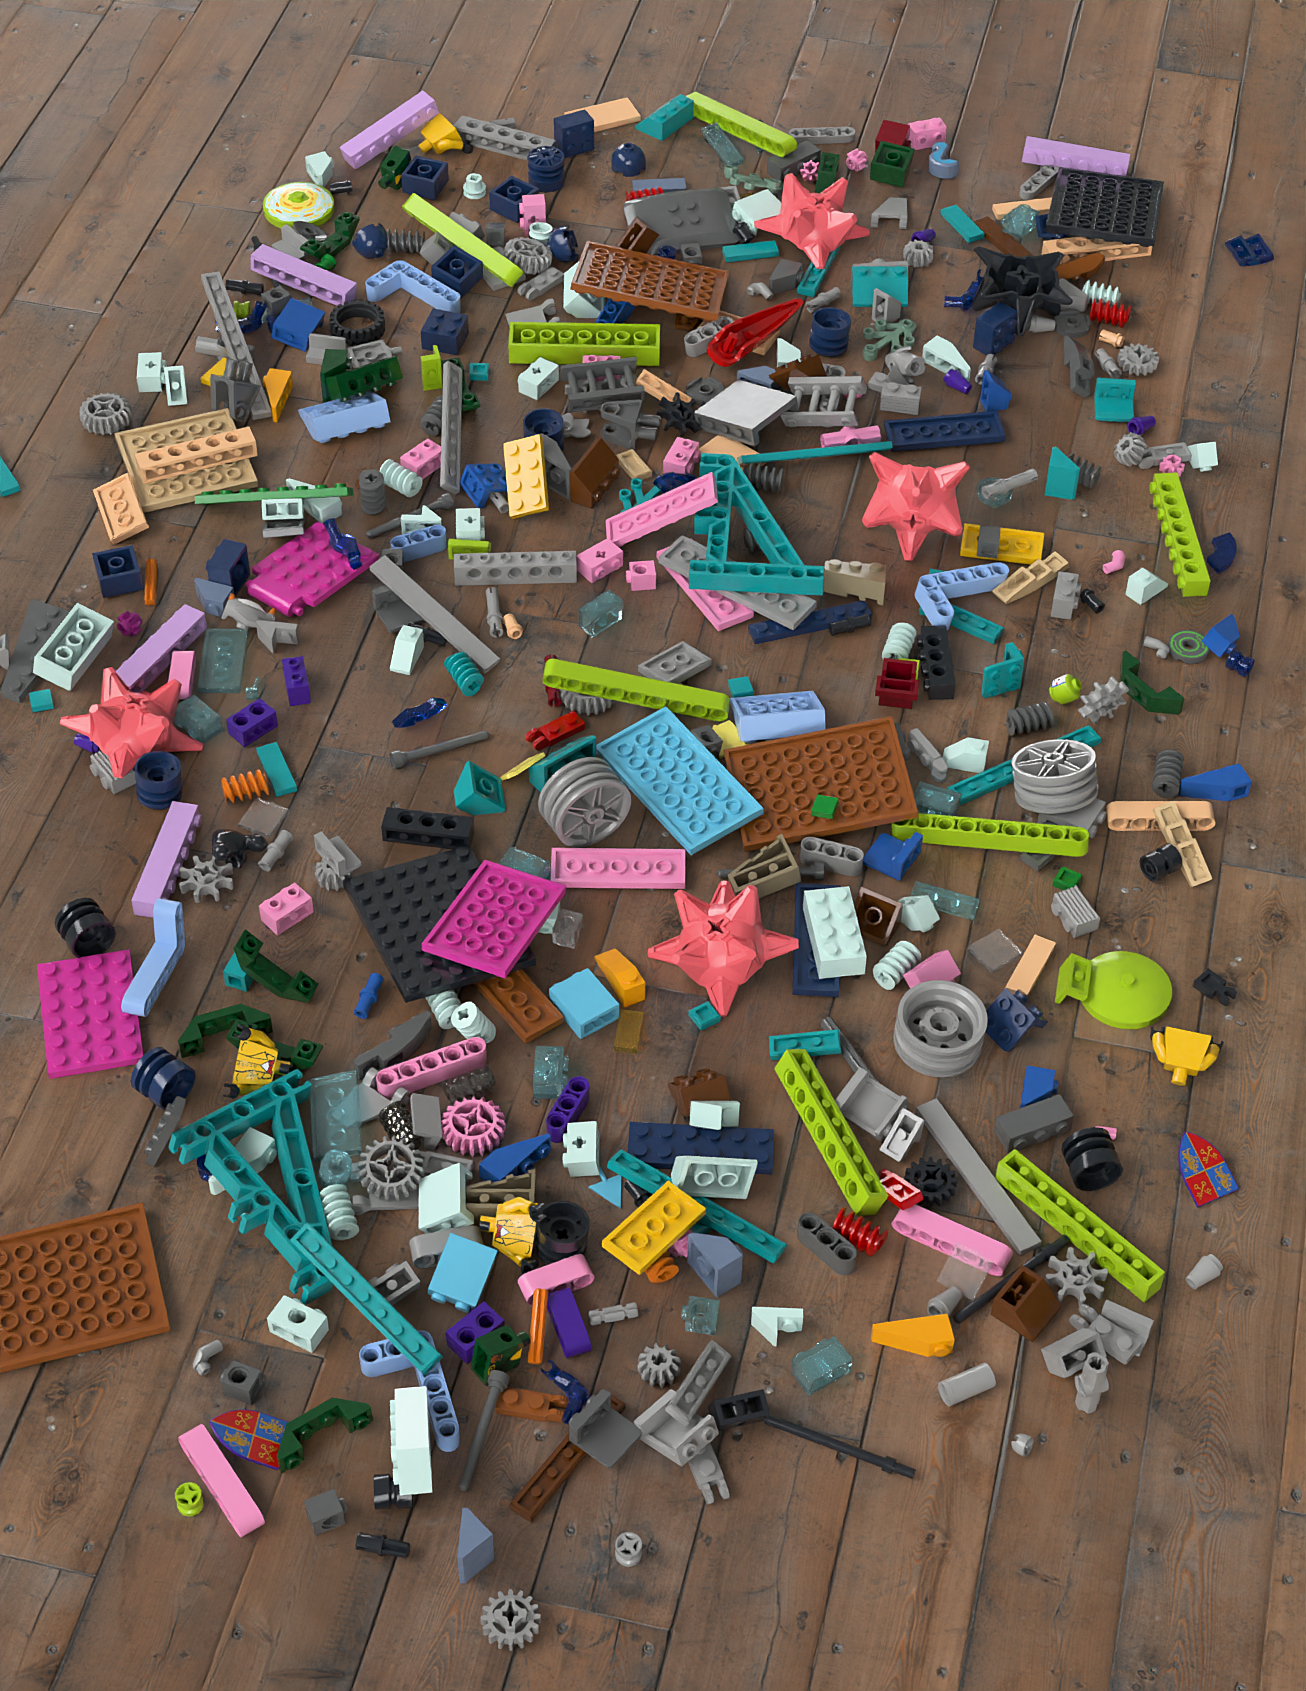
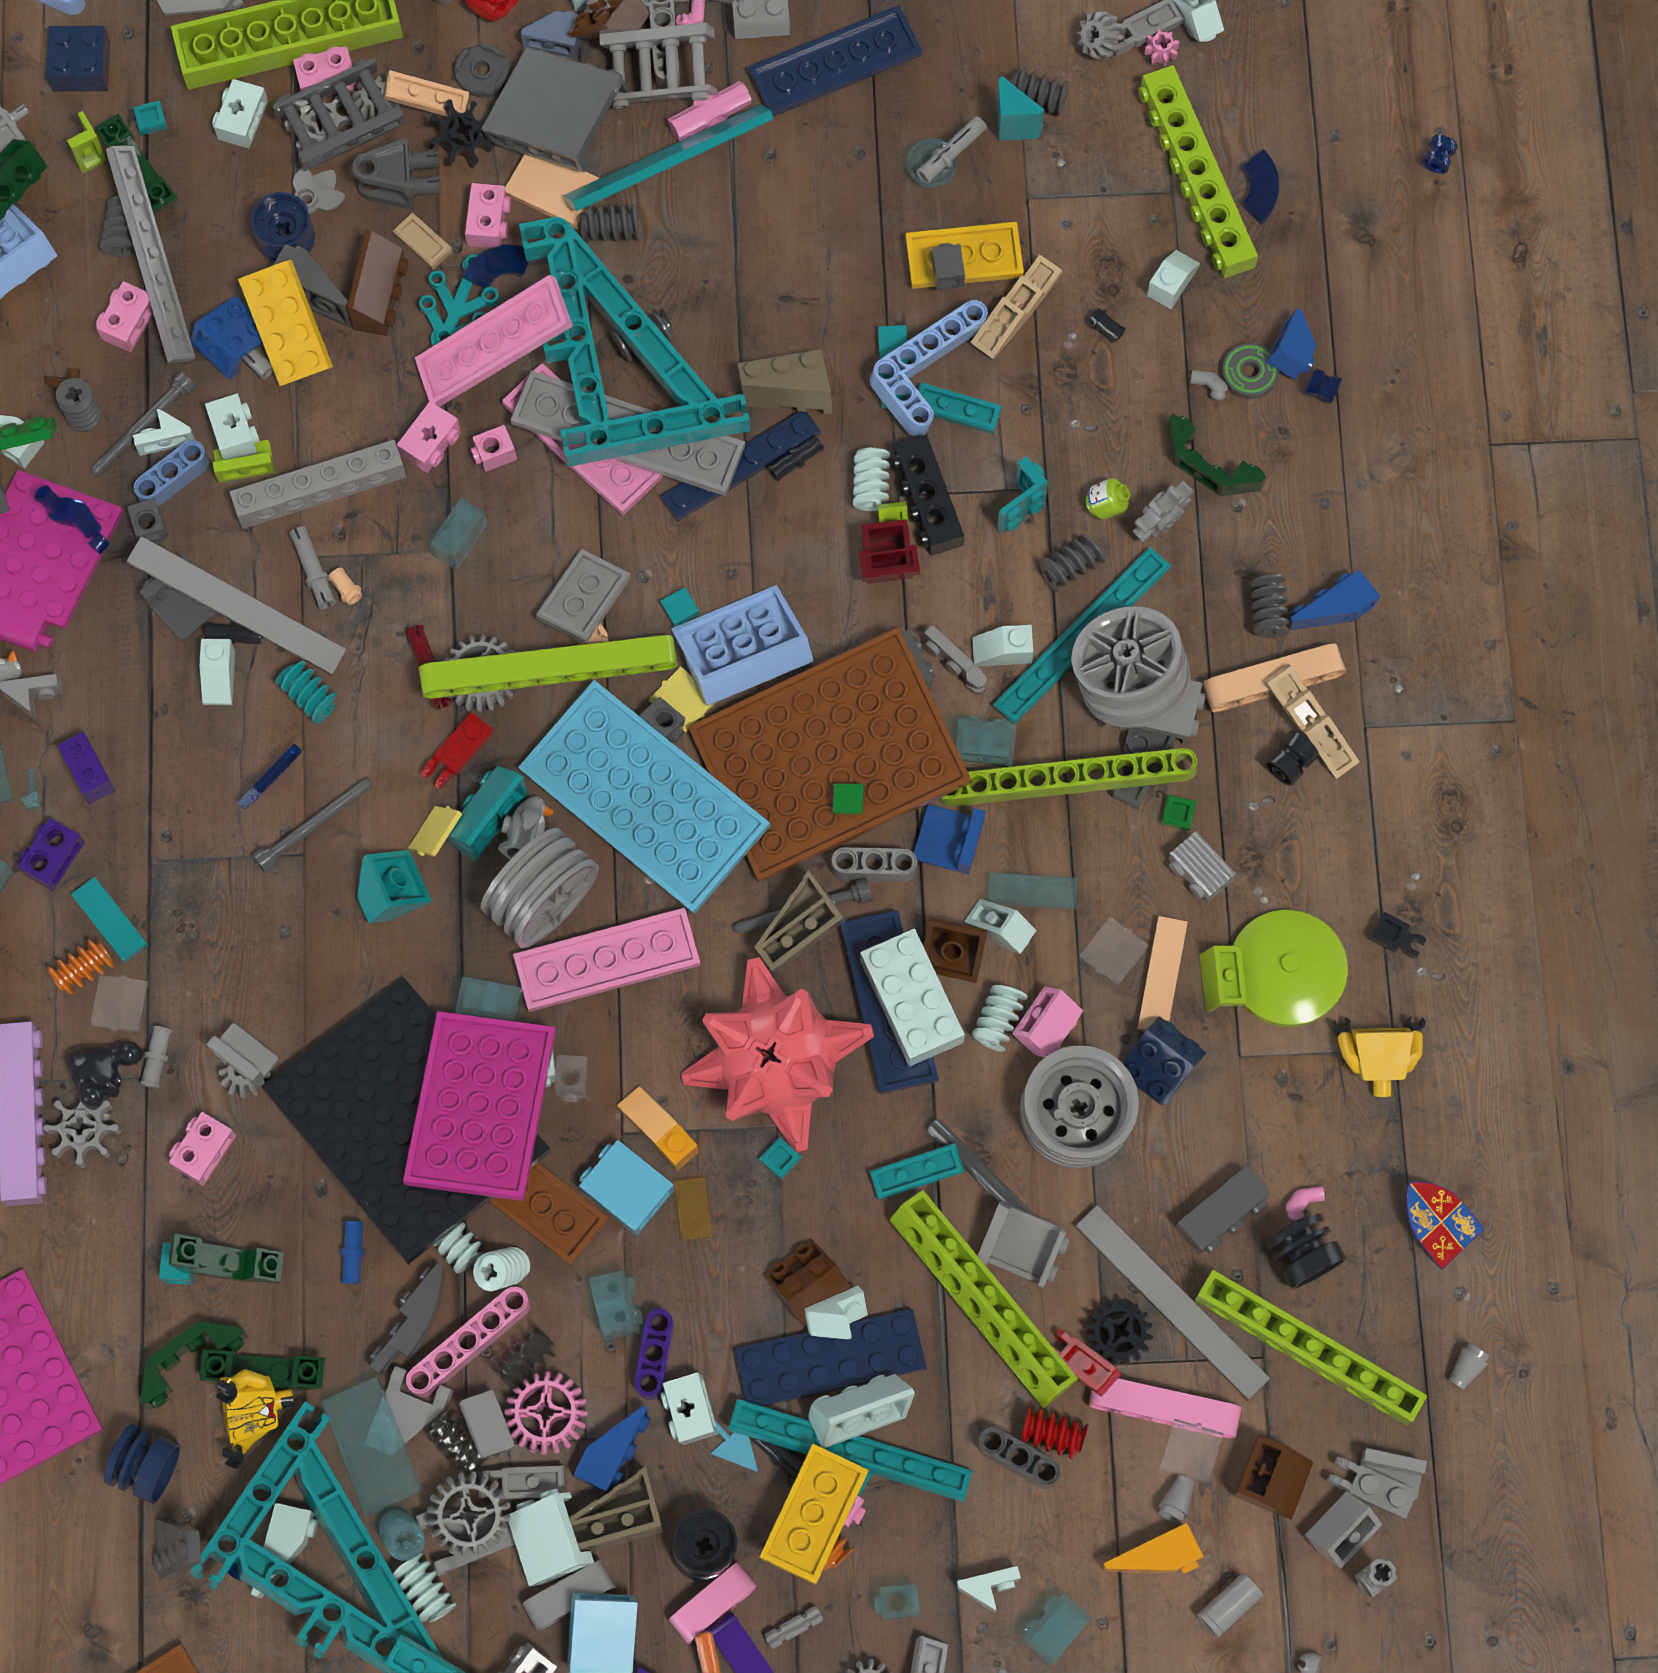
camera: 15 degrees left, 25 degrees up
(160, 960) = (72, 1253): light blue beam -> none
(400, 478) = (106, 364): light aqua piece -> none
(427, 828) = (388, 970): black brick -> none
(515, 1230) = (647, 1559): yellow torso -> none
(715, 1261) = (898, 1531): sand blue slope -> none
(902, 1135) = (1071, 1280): slope -> none
(915, 501) = (838, 250): coral piece -> none
(1038, 1085) = (1215, 1157): blue slope -> none
(1045, 1253) = (1280, 1391): black bar -> none
(1064, 596) = (1069, 329): light grey brick -> none
(1076, 1277) = (1327, 1405): light grey gear -> none
(1117, 562) = (1125, 244): bright pink arm -> none

